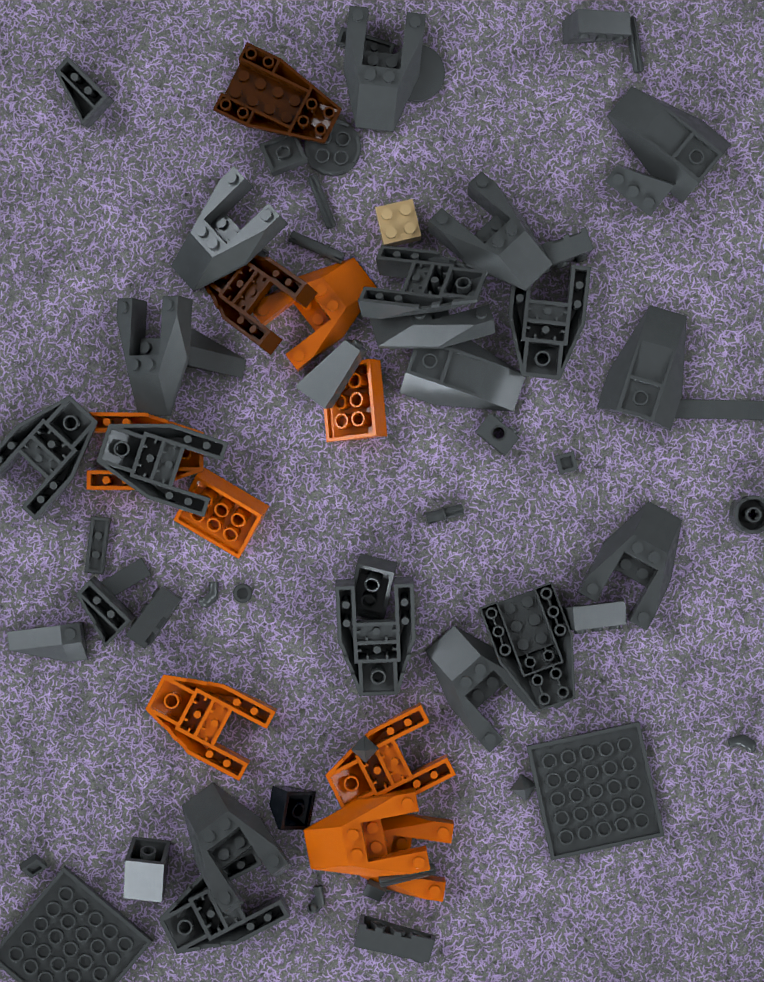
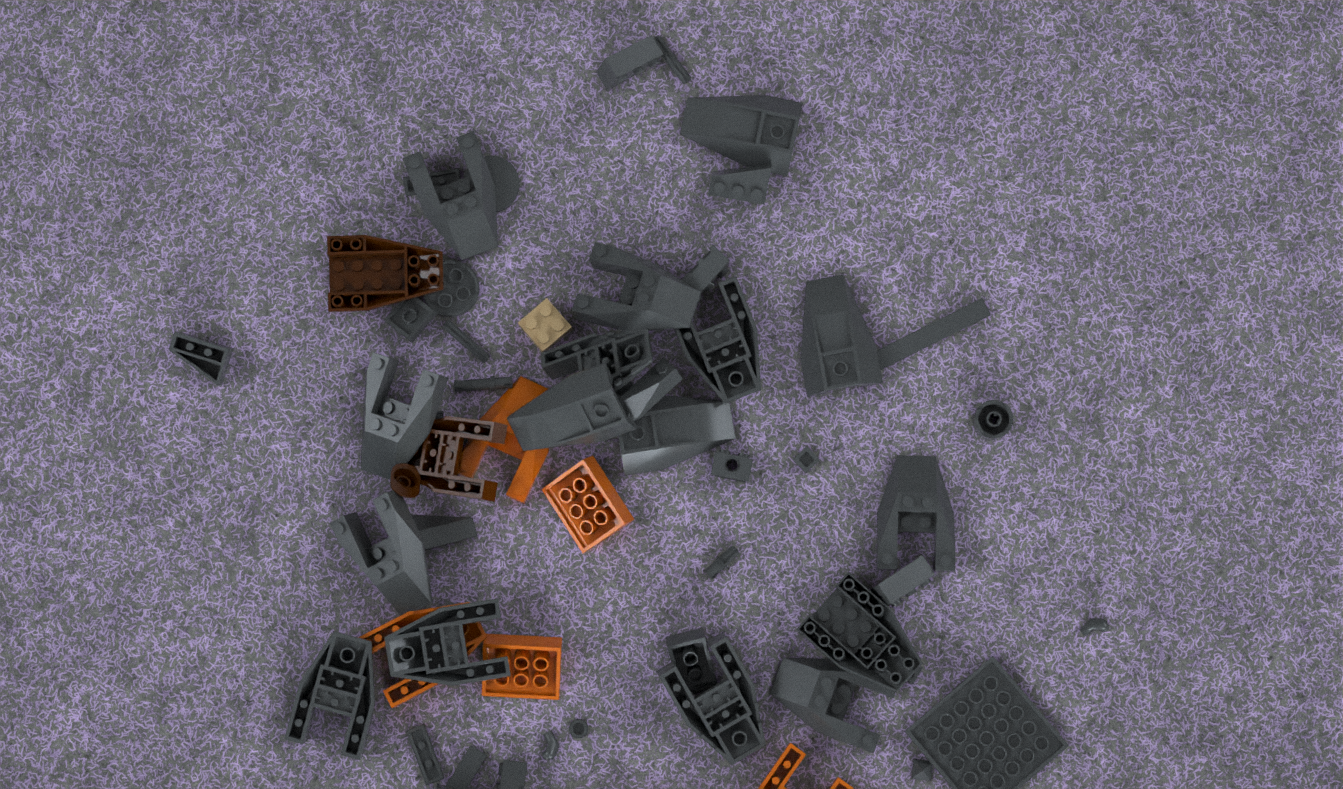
camera: 30 degrees left, 5 degrees down
(202, 295) = (405, 480): none -> reddish brown piece
(331, 375) = (557, 491): dark grey slope -> none
(381, 311) = (572, 412): none -> dark grey wedge

